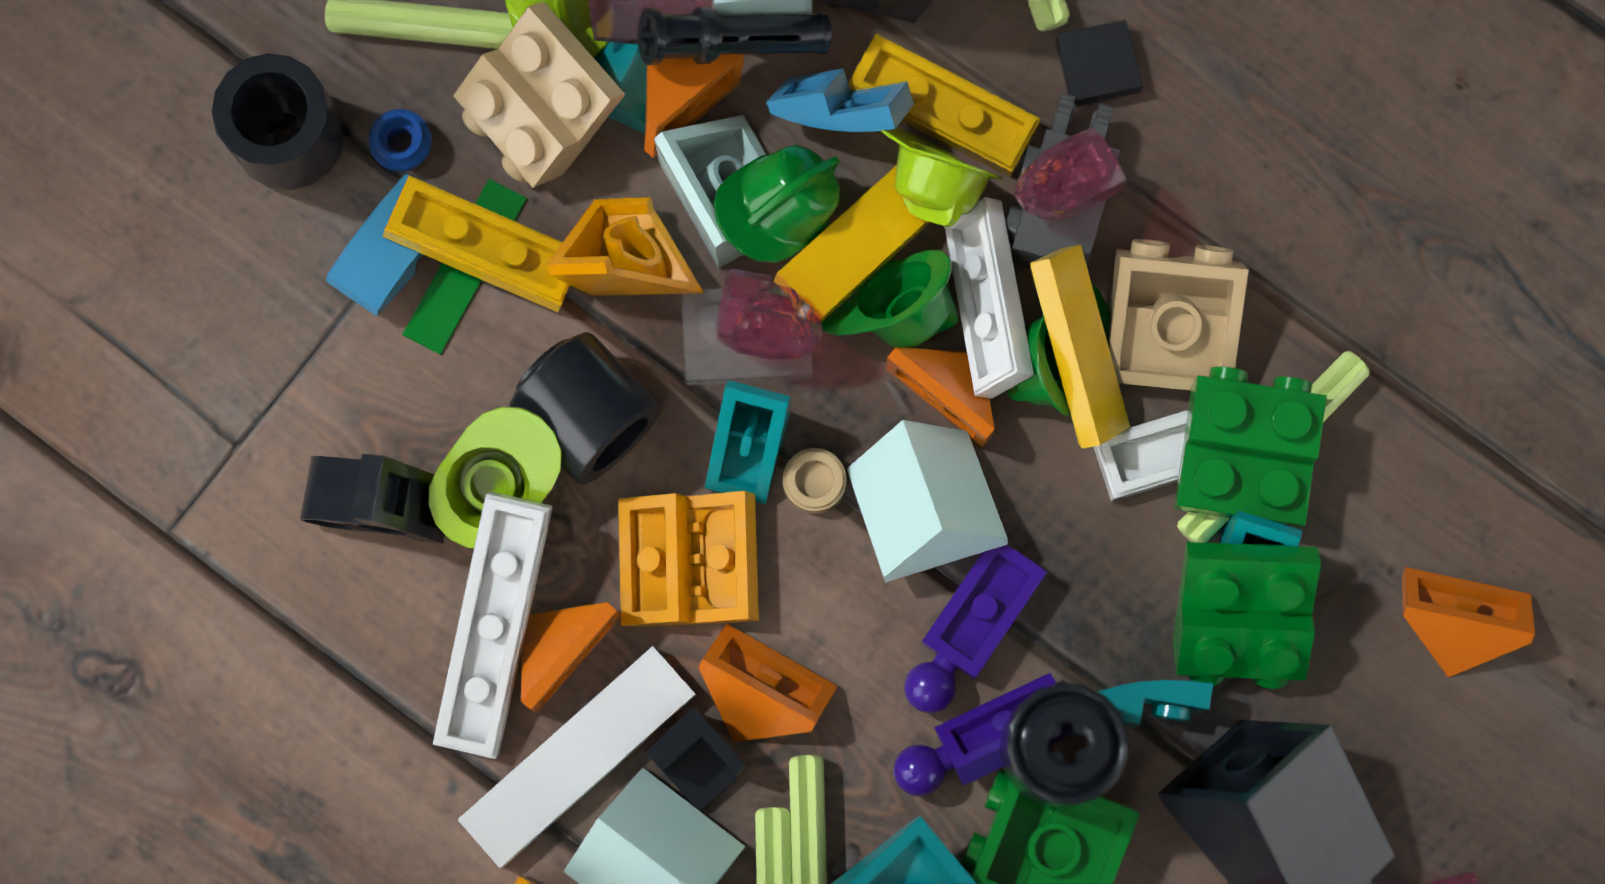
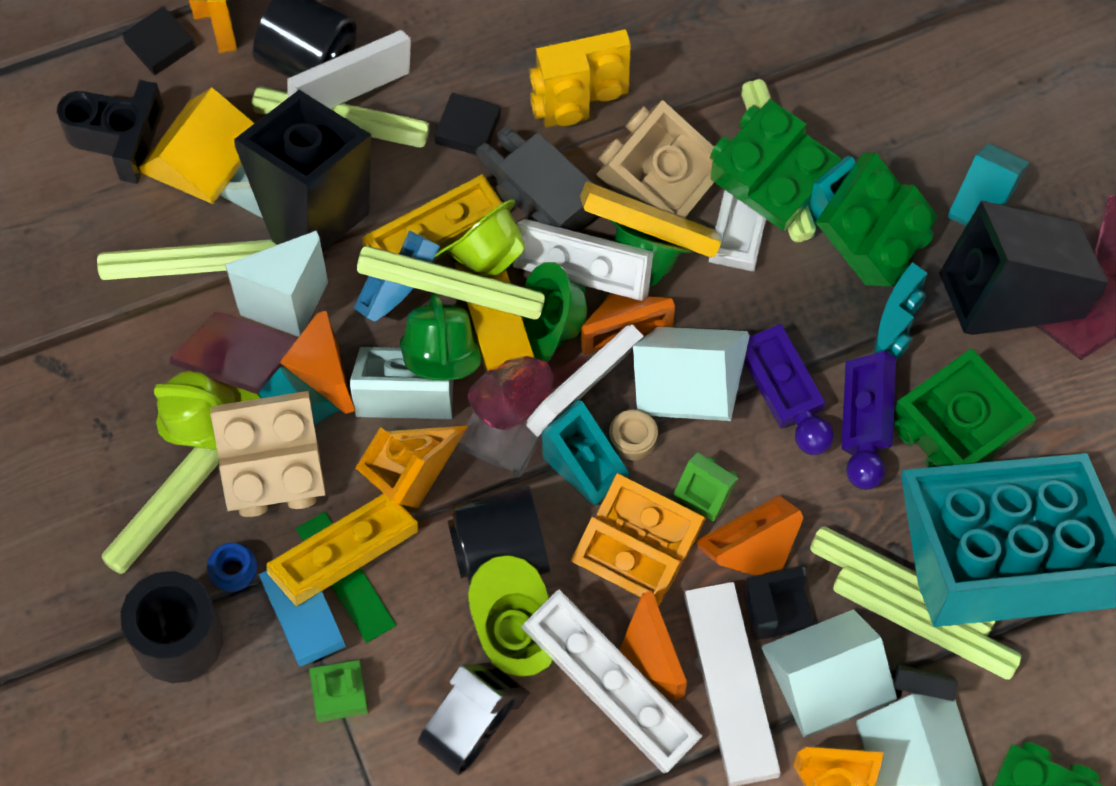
camera: 60 degrees left, 15 degrees down
(327, 338) = (338, 691): none -> bright green tile
(707, 35) = (304, 318): black pin -> none
(791, 599) = (705, 486): none -> bright green tile
(831, 388) = (584, 379): none -> white tile
(855, 168) = (450, 282): none -> yellowish green axle
(1042, 773) = (905, 377): black piece -> none
(1070, 177) = (542, 158): clear pink rock -> none
(1210, 141) = (578, 73): none -> yellow plate
(1394, 719) = (991, 178): none -> teal slope
(1465, 619) = (950, 113): orange slope -> none

